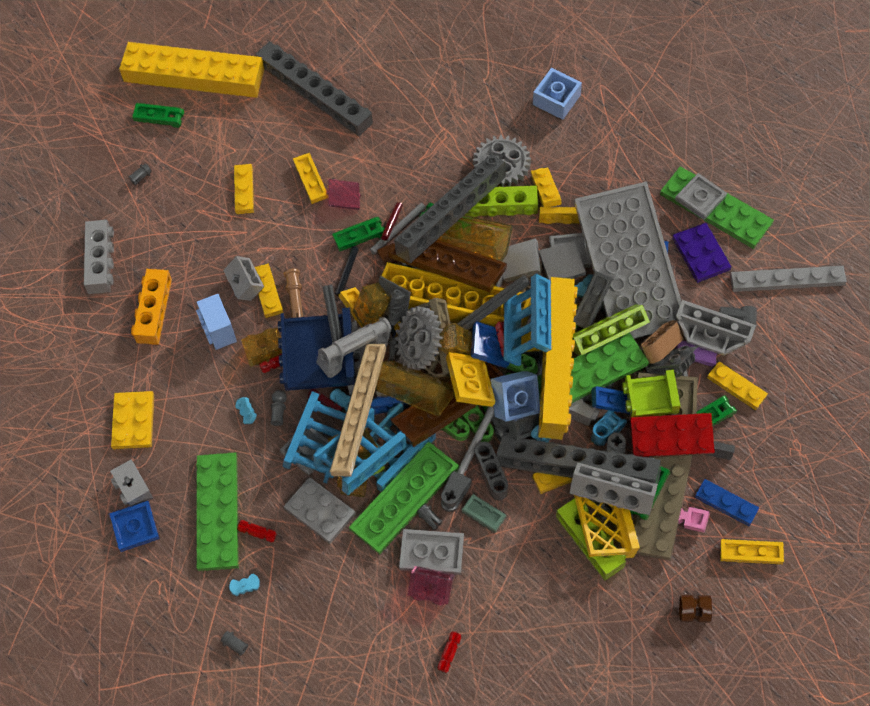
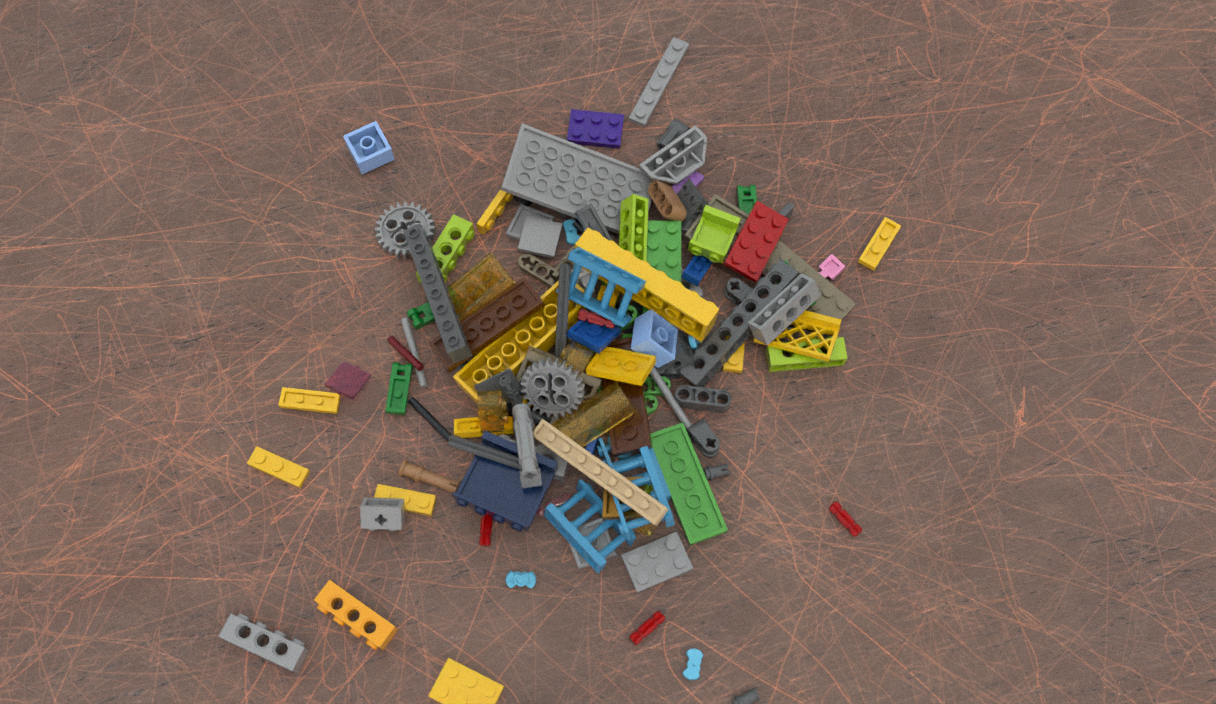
camera: 65 degrees left, 5 degrees up
(140, 173) = (193, 558): dark grey pin -> none
(158, 114) = (135, 508): green plate -> none
(192, 69) = (105, 450): yellow brick -> none
(215, 322) = (415, 560): light blue brick -> none
(217, 512) = (607, 655): bright green plate -> none
(257, 354) = (468, 542): clear yellow brick -> none
(279, 398) = (526, 543): dark grey pin -> none
(315, 89) = (146, 374): dark grey brick -> none
(340, 398) = (562, 487): medium azure piece -> none
(384, 255) = (437, 374): reddish brown tile -> none
(432, 550) = (749, 486): light grey plate -> none
(441, 584) = (782, 501): clear pink brick -> none
(484, 513) = (737, 425): sand green plate -> none
(522, 260) = (519, 263): light grey tile -> none
(546, 187) = (462, 208): yellow plate -> none
(608, 424) = (714, 284): dark azure piece -> none
(688, 609) = (907, 309): reddish brown wheel -> none
(701, 196) = (547, 97): light grey tile -> none
(727, 502) = (827, 238): blue plate -> none
(729, 216) = (560, 93): bright green plate -> none
(737, 385) = (731, 172): yellow plate -> none

